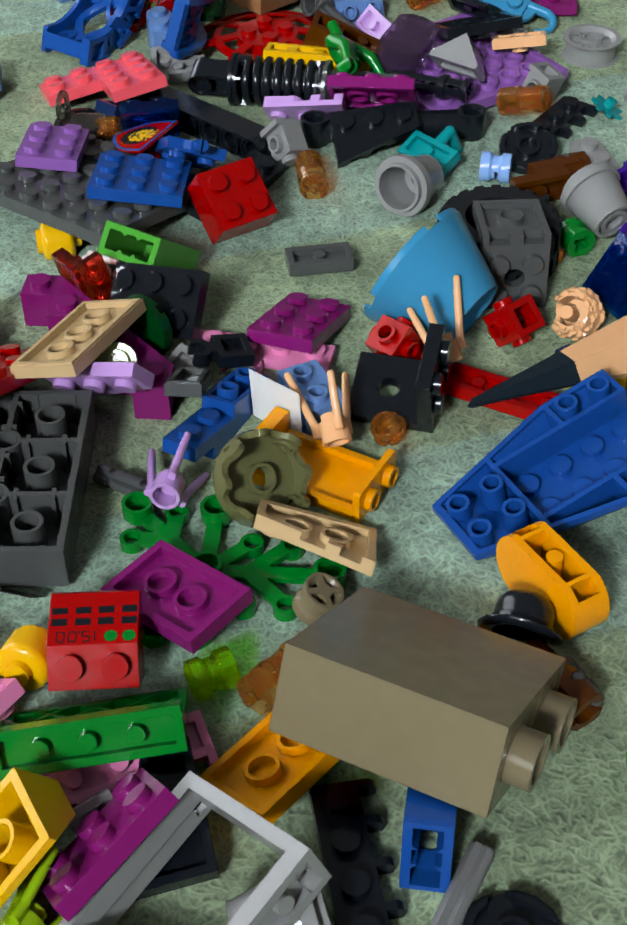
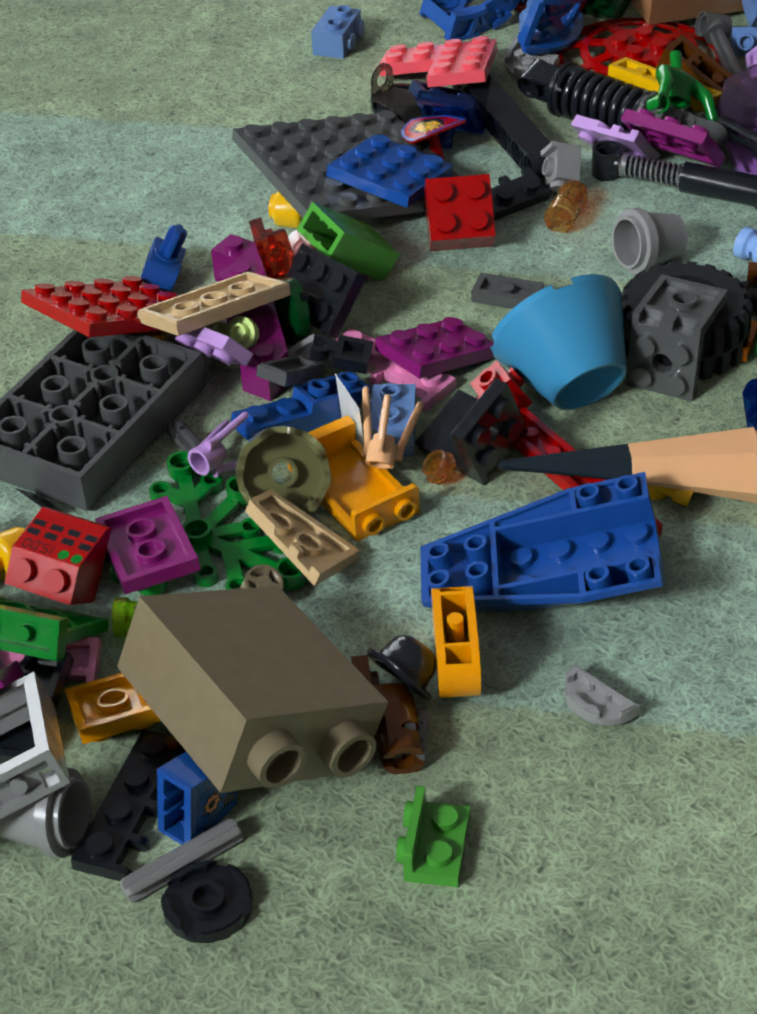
camera: 30 degrees right, 0 degrees up
(52, 147) = (338, 118): medium lavender plate -> none
(108, 126) = (408, 109): clear orange bush -> none
(196, 151) = (449, 149): blue plate -> none
(368, 128) = (654, 173): black wing -> none
(420, 143) = (702, 215): teal plate -> none
(459, 341) = (534, 407): light nougat plant -> none
(514, 320) = (640, 396): red brick -> none
(577, 313) = (702, 415): light nougat piece -> none

